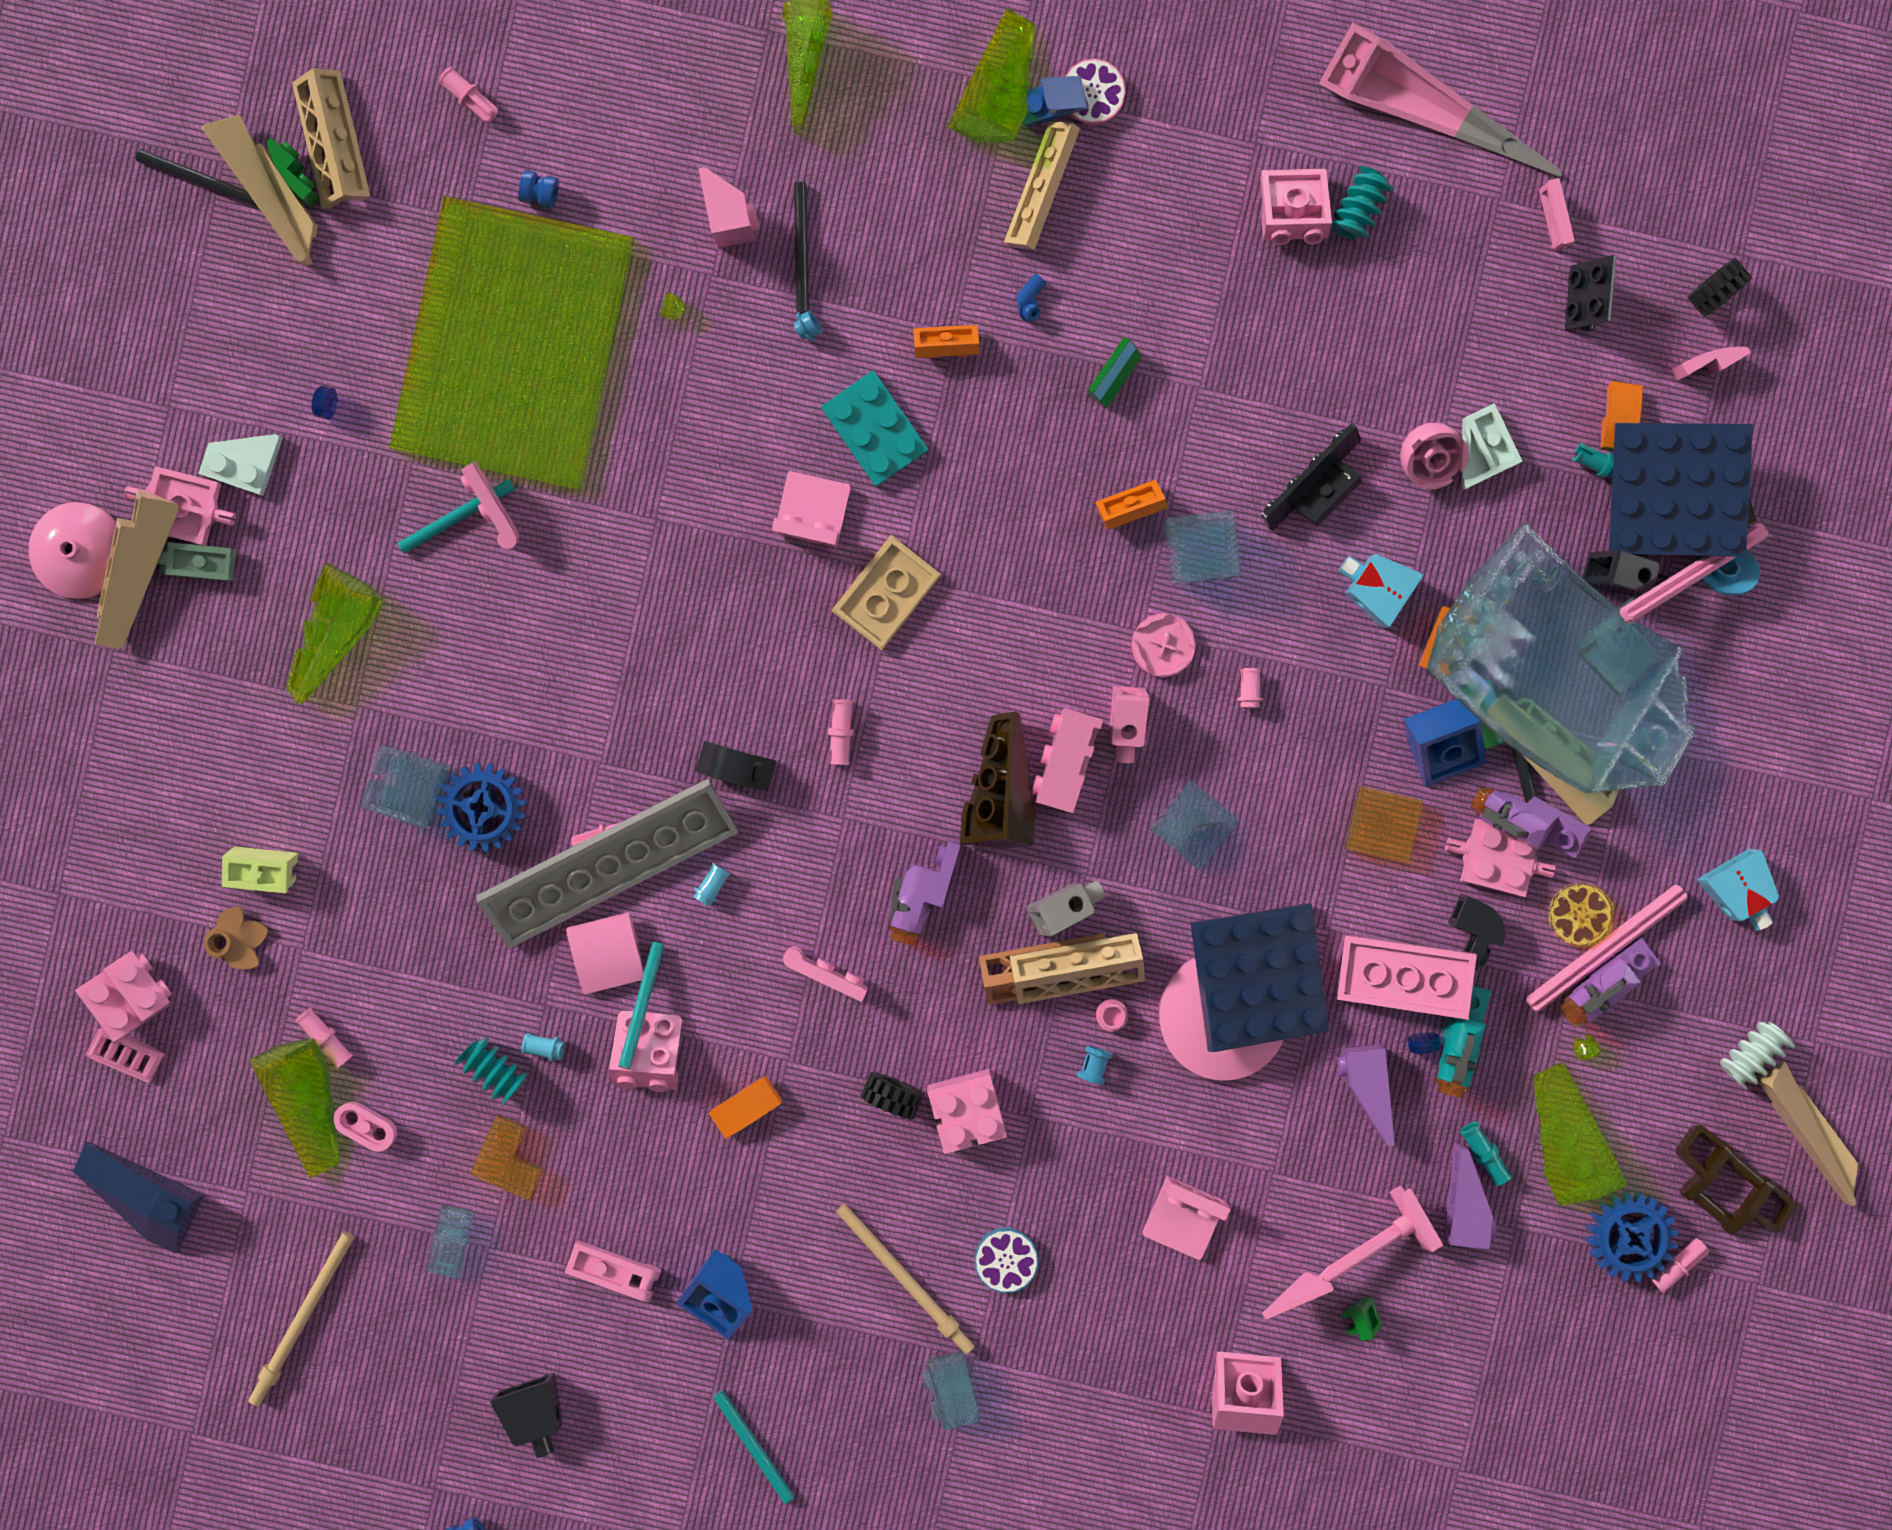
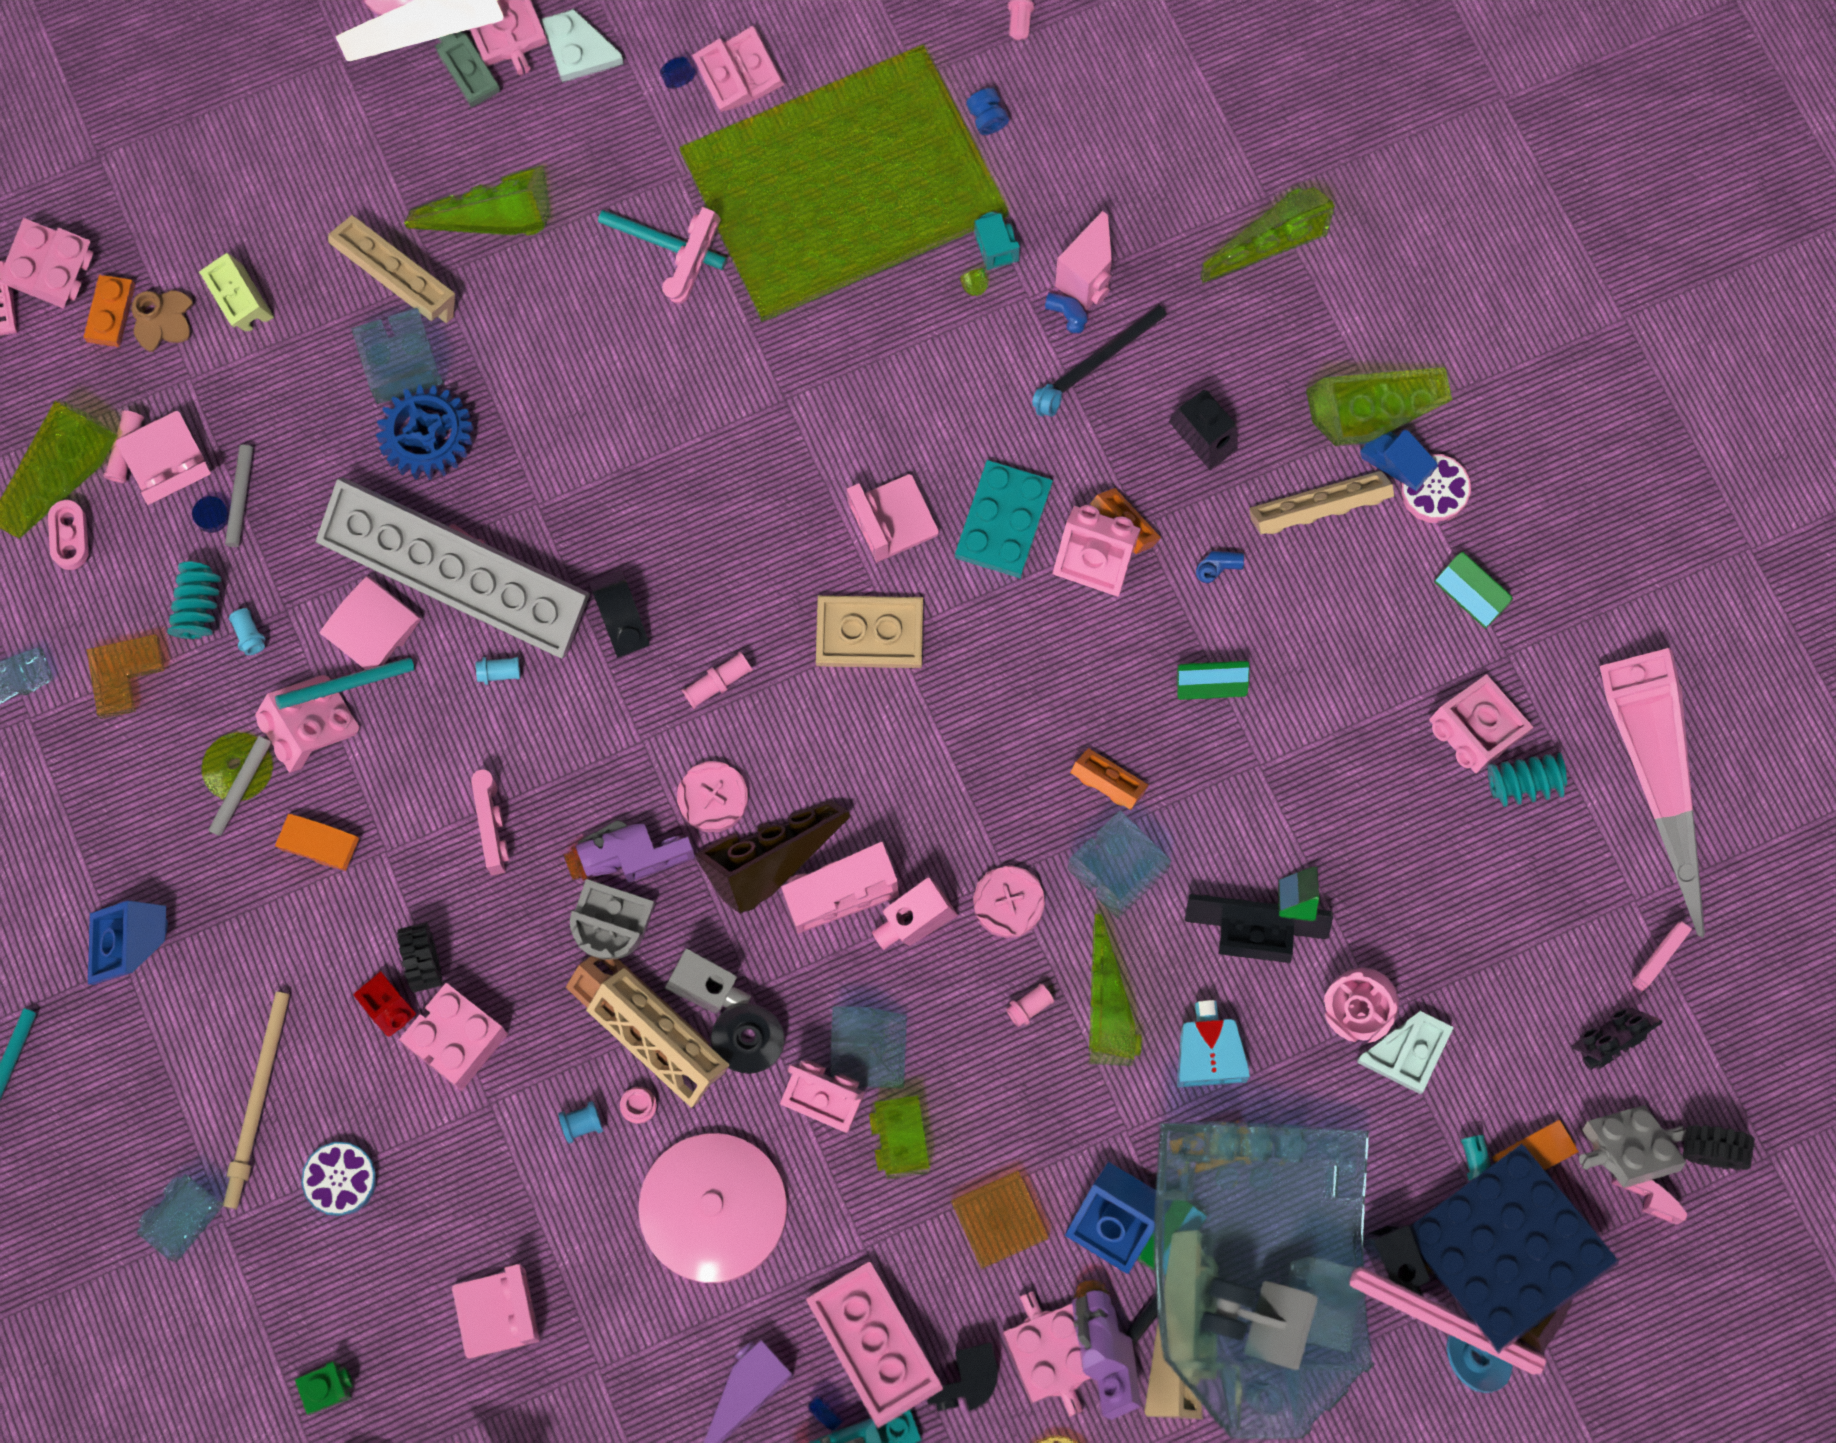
camera: 60 degrees right, 15 degrees down
(199, 973) = (109, 311): none -> orange plate
(331, 739) = (393, 269): none -> tan fence
(356, 353) = (738, 69): none -> bright pink slope
(359, 1016) = (163, 457): none -> bright pink bracket
(427, 978) = (239, 496): none -> light grey bar
(427, 1009) = (210, 514): none -> clear blue tile
(612, 1271) = (81, 834): bright pink plate -> none
(650, 265) = (996, 241): none -> teal brick
(652, 1111) = (220, 777): none -> clear neon green dish
(661, 1133) = (239, 786): none -> light grey bar
(748, 251) = (1070, 308): none -> blue arm
(904, 1142) = (384, 1004): none -> red bracket
(920, 225) = (1203, 425): none -> black torso
(925, 798) = (712, 796): none -> bright pink tile
(956, 380) = (1096, 549): none -> bright pink plate
(964, 941) = (609, 921): none -> light grey slope
(1133, 910) = (744, 1053): none -> black dish
(1146, 1370) = (324, 1387): none -> green bracket
(1191, 127) = (1473, 590): none -> slope
(1206, 882) = (822, 1096): none -> bright pink bracket
(1259, 977) = (772, 1207): dark blue plate -> none
(1276, 849) = (901, 1138): none -> clear neon green brick
(1306, 640) = (1111, 1019): none -> clear neon green wedge
(1322, 436) = (1299, 895): none -> green slope
(1612, 692) = (1277, 1326): none -> light grey plate
(1674, 346) = (1633, 1146): none -> light grey plate

